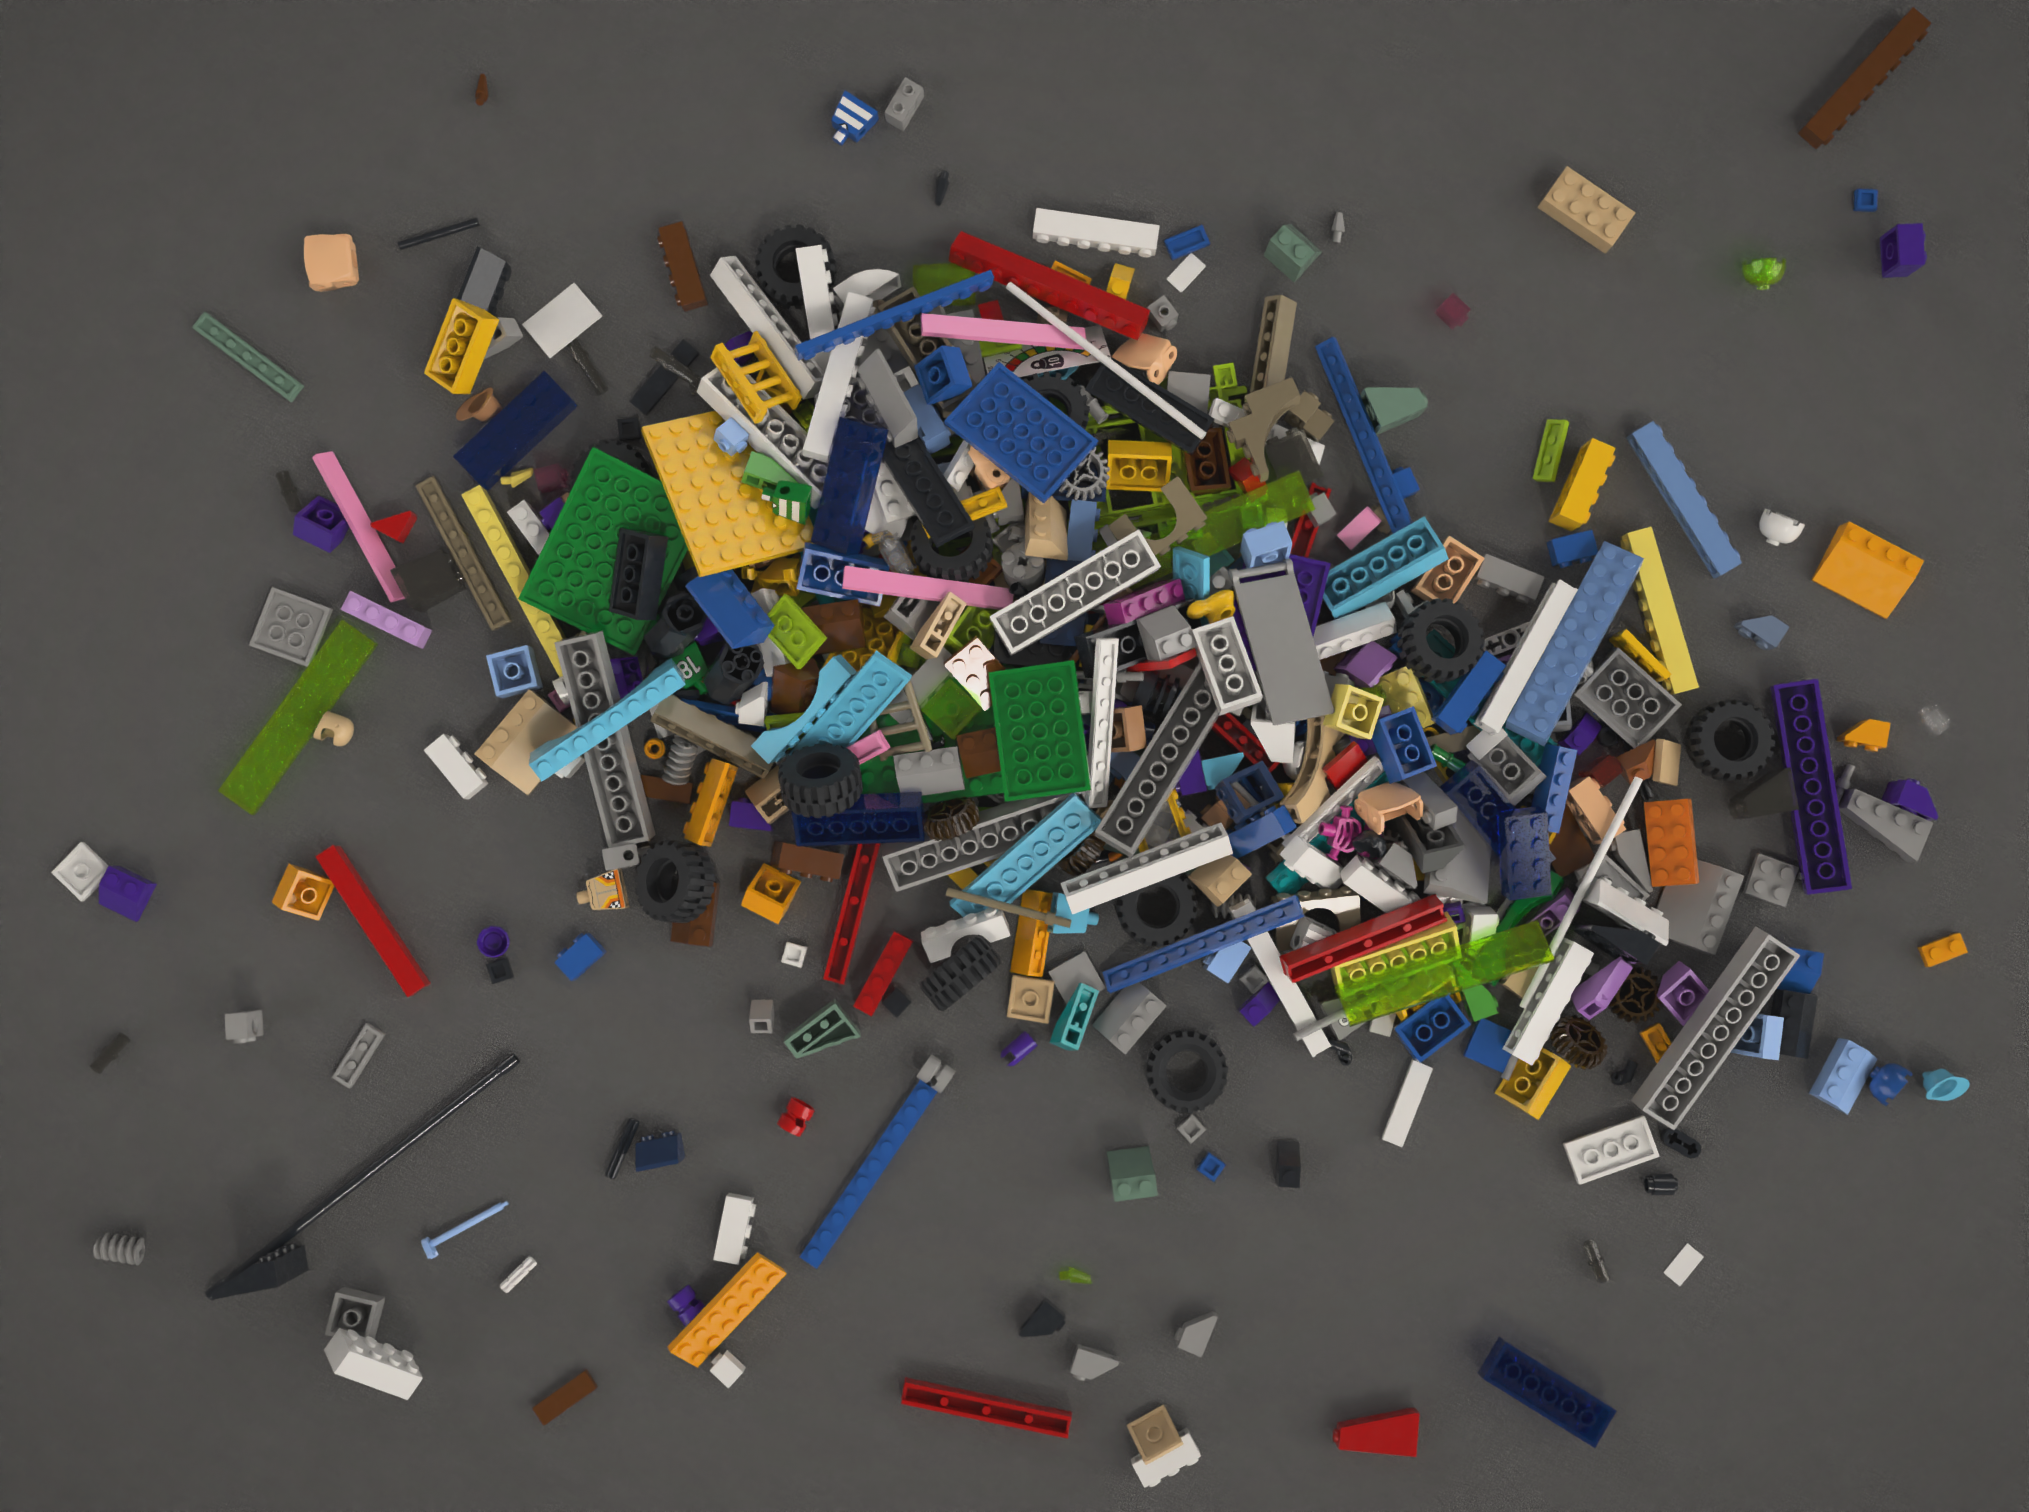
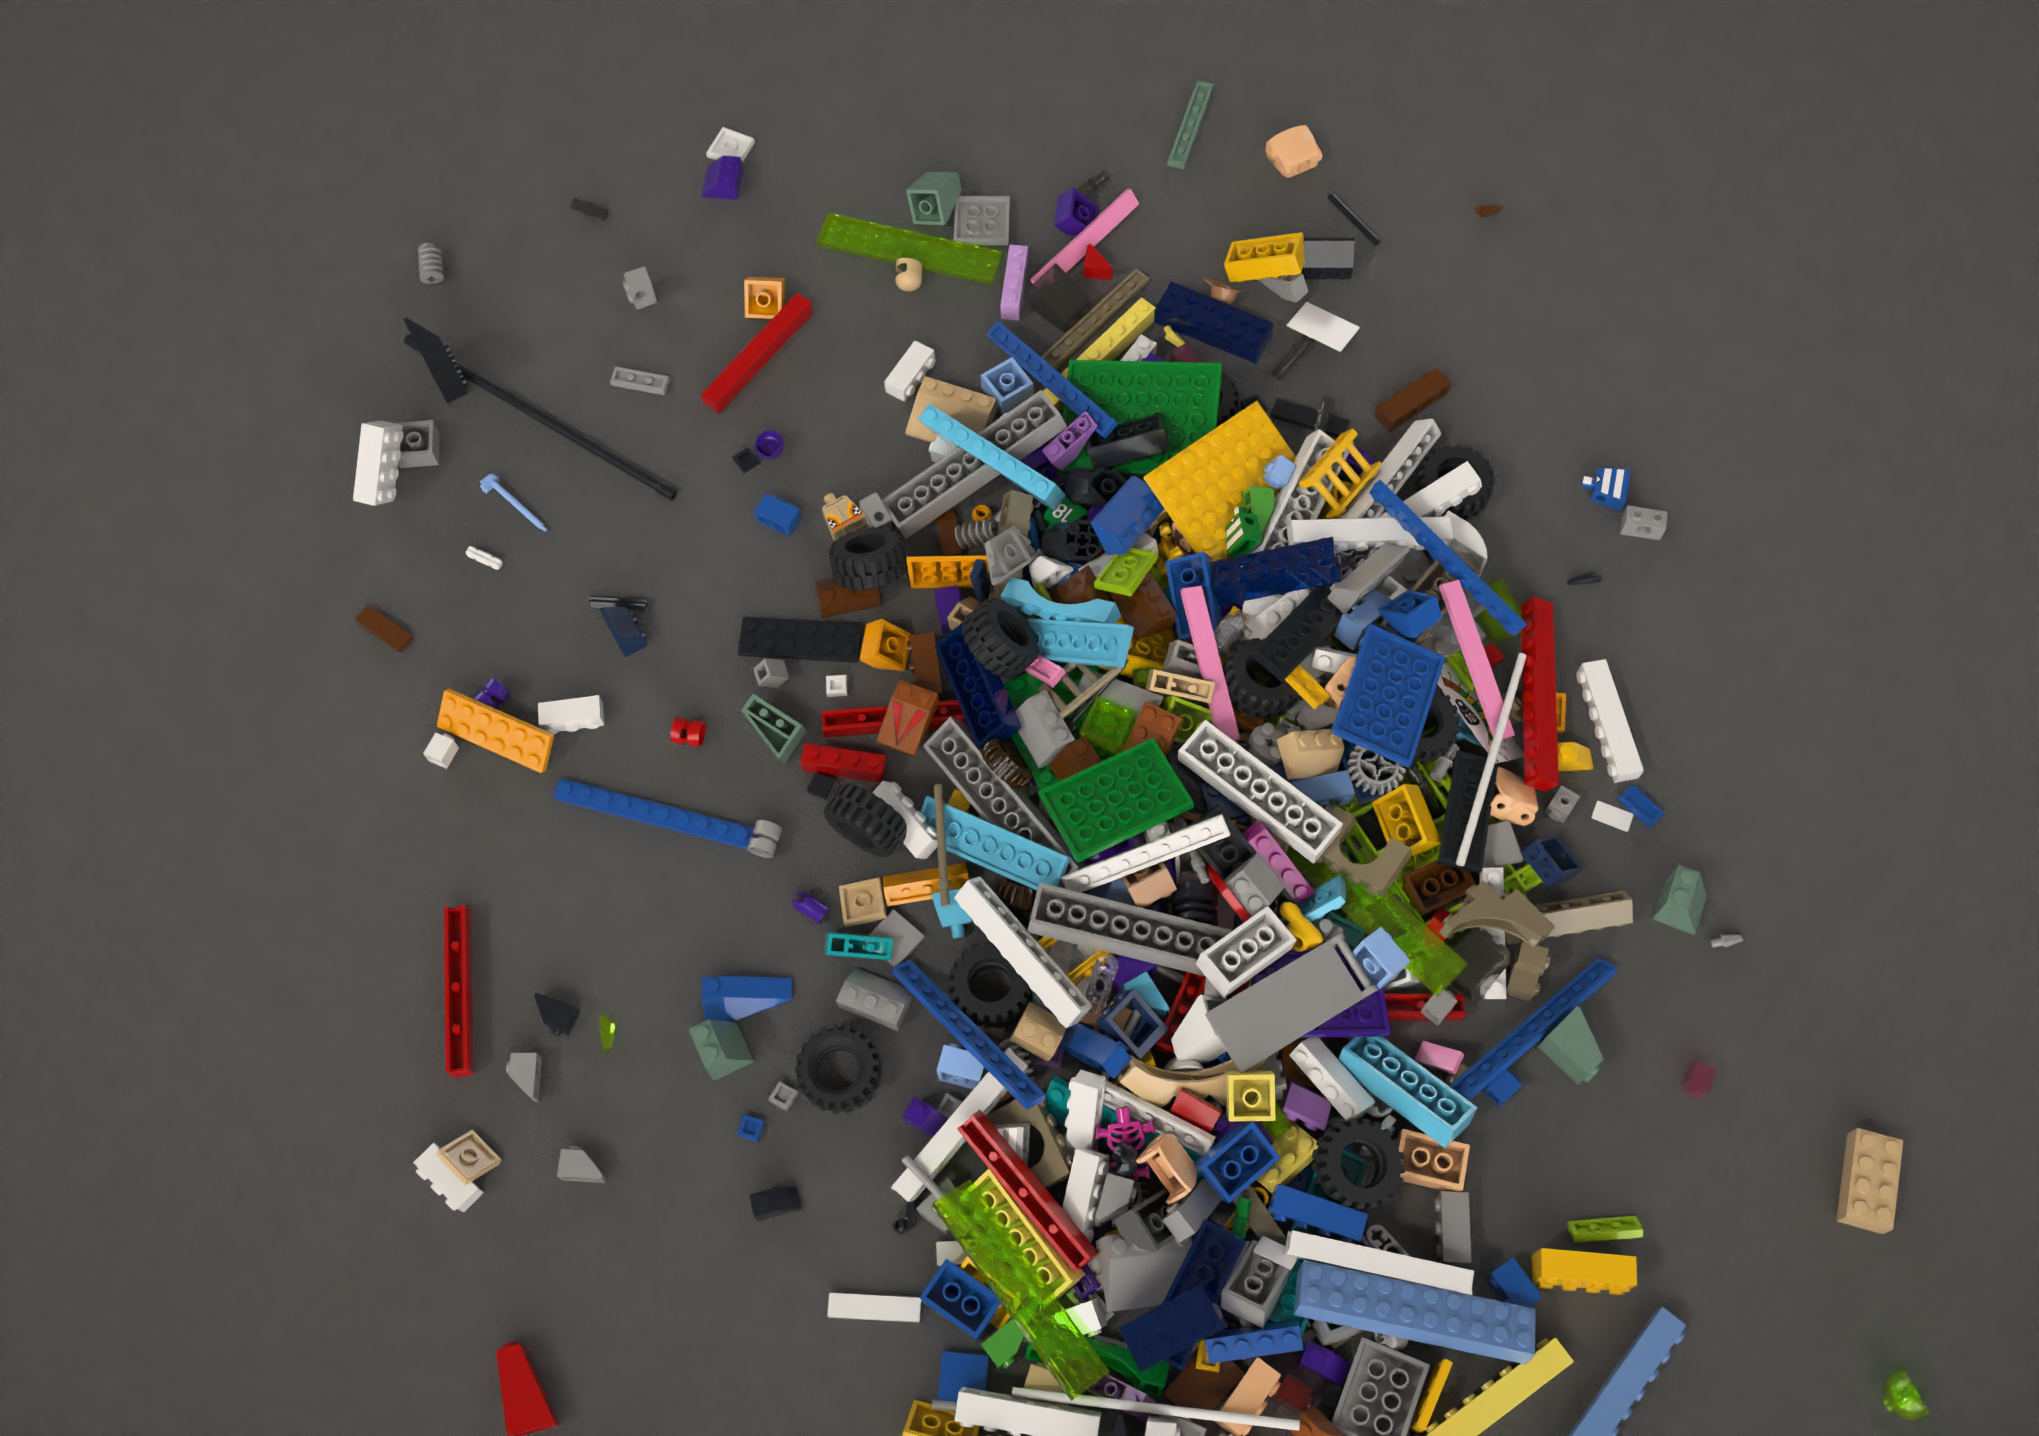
camera: 75 degrees right, 20 degrees down
(244, 669) = (933, 197): none -> sand green slope
(532, 625) = (1050, 378): none -> blue plate
(616, 632) = (1070, 442): none -> medium lavender slope
(727, 740) = (1008, 554): none -> light grey wing
(730, 976) = (800, 639): none -> black plate
(741, 777) = (980, 581): none -> dark blue tile
(865, 898) = (908, 718): none -> dark orange slope
(1085, 1146) = (740, 997): none -> blue wedge
(1196, 798) = (1099, 968): none -> clear beam
(1224, 337) = (1557, 868): none -> dark blue window

